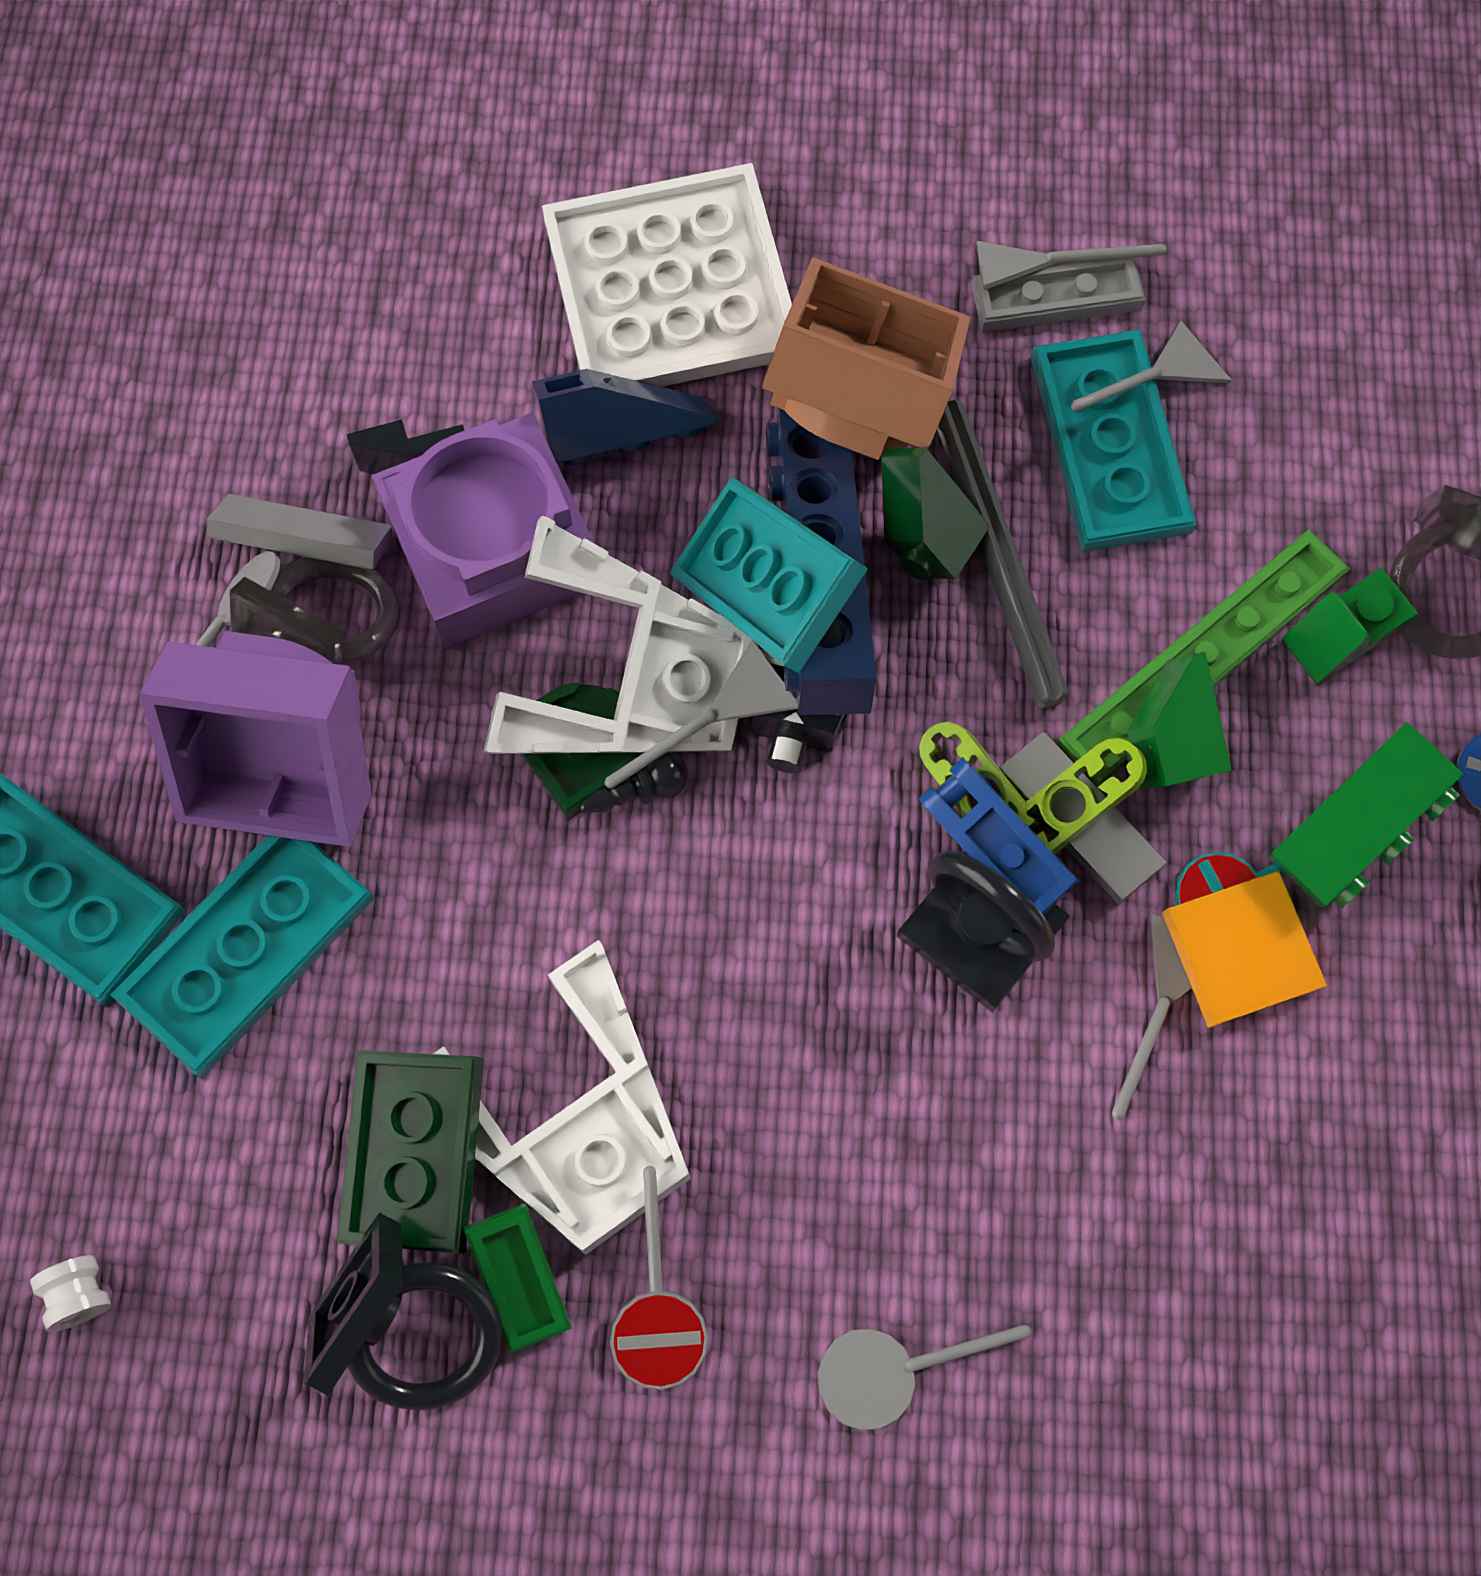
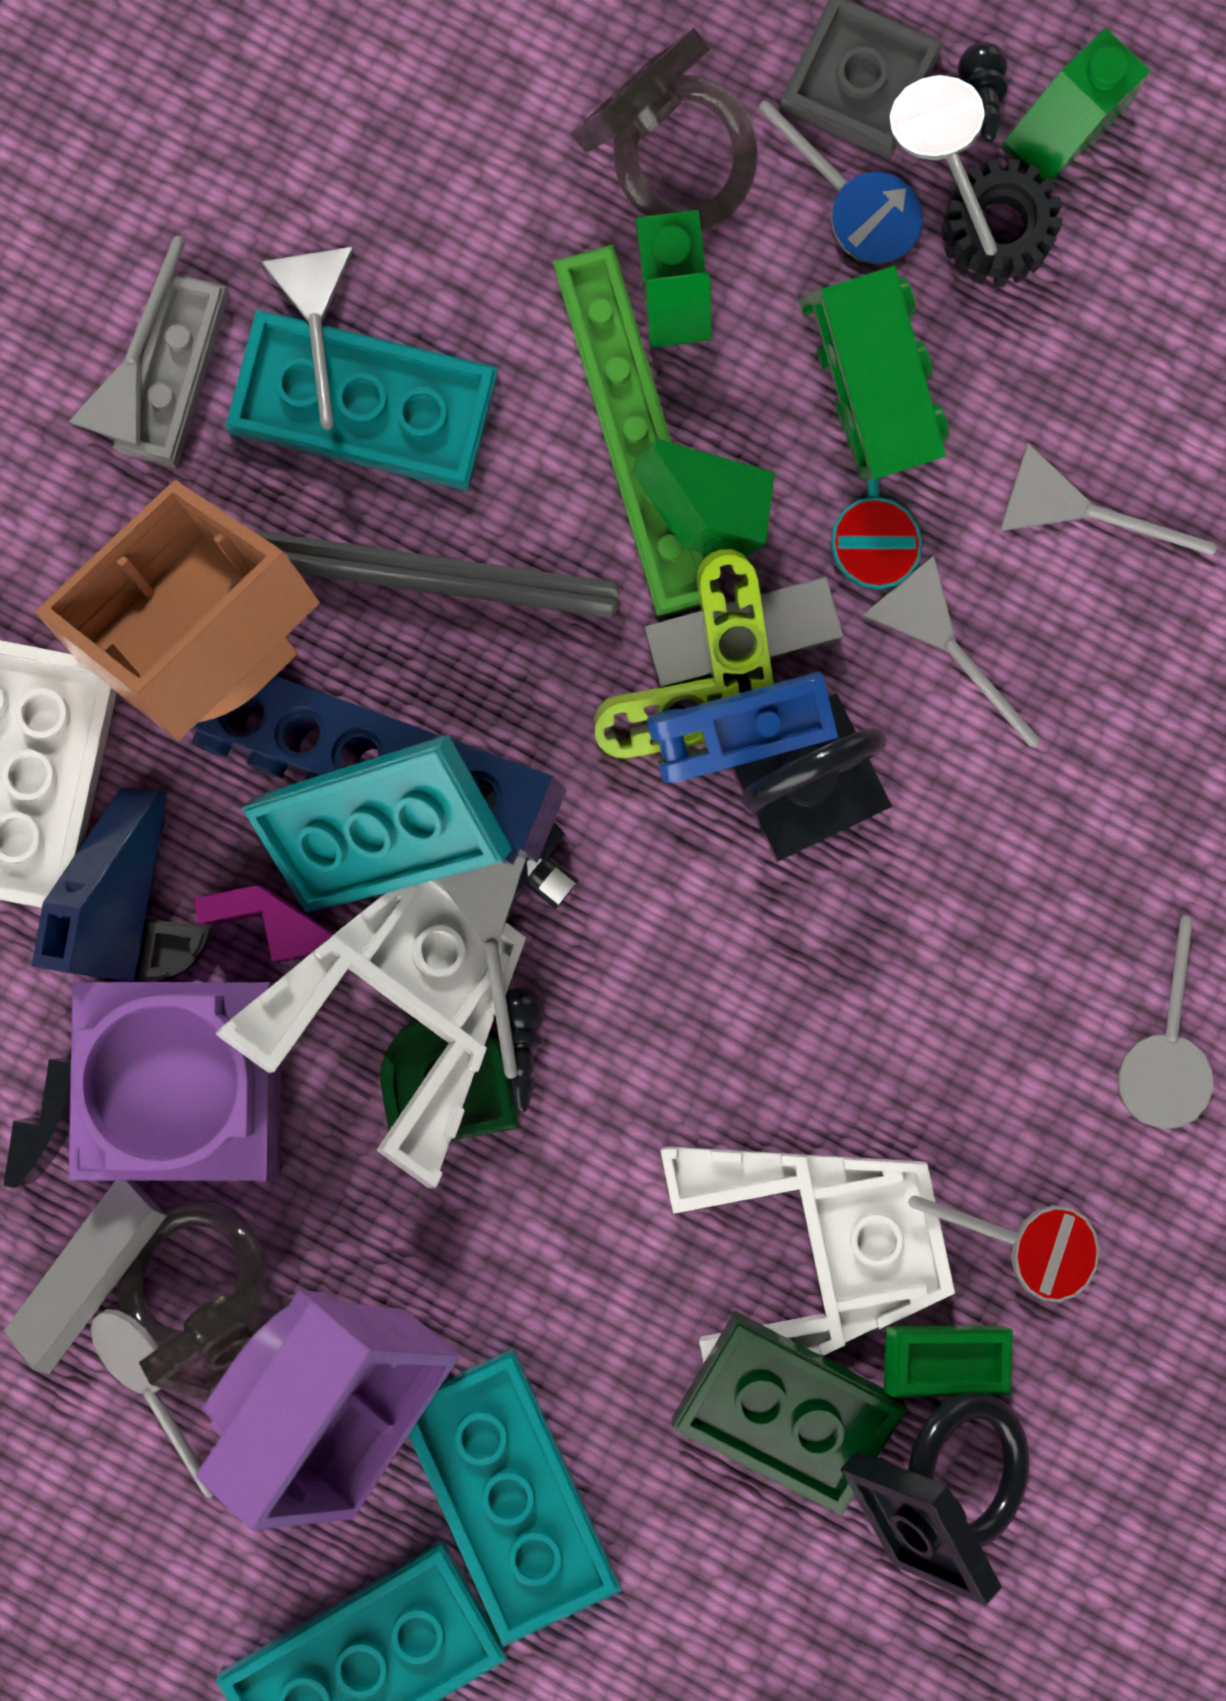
camera: 65 degrees left, 15 degrees up
(594, 487) = (170, 949): none -> dark grey tile
(657, 546) = (288, 929): none -> magenta slope
(927, 515) = (377, 632): dark green slope -> none
(1243, 949) = (939, 549): light orange tile -> none
(1343, 1029) = (1046, 497): none -> light grey piece

